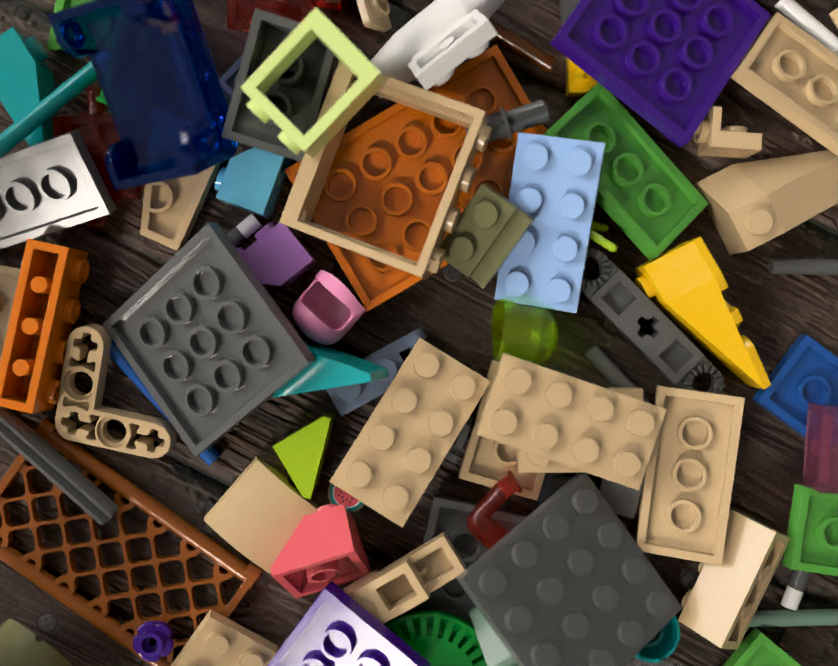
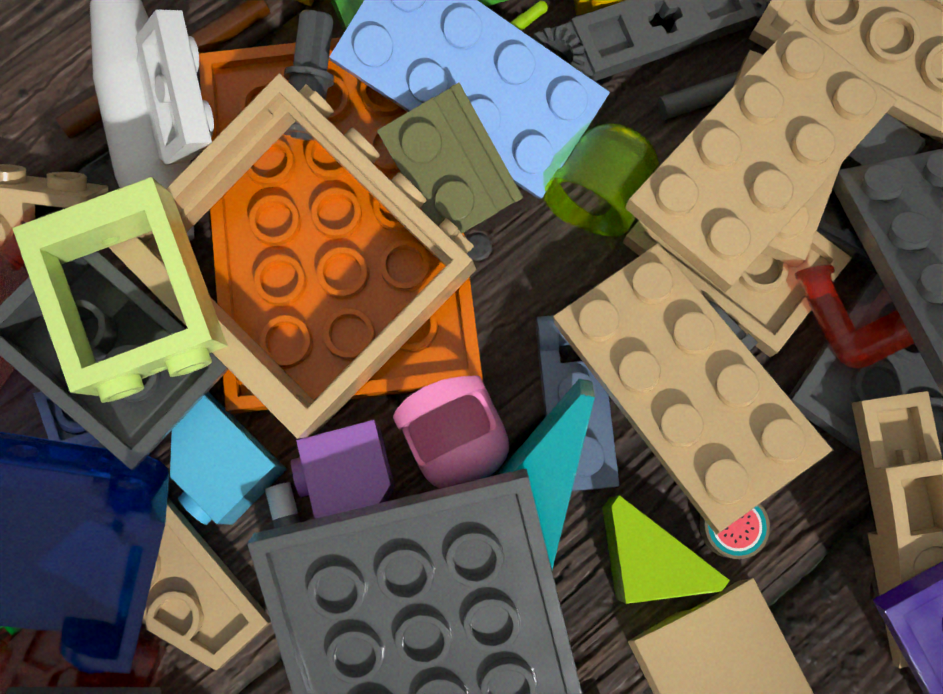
camera: 65 degrees left, 10 degrees down
(321, 551) = (817, 600): coral slope -> none

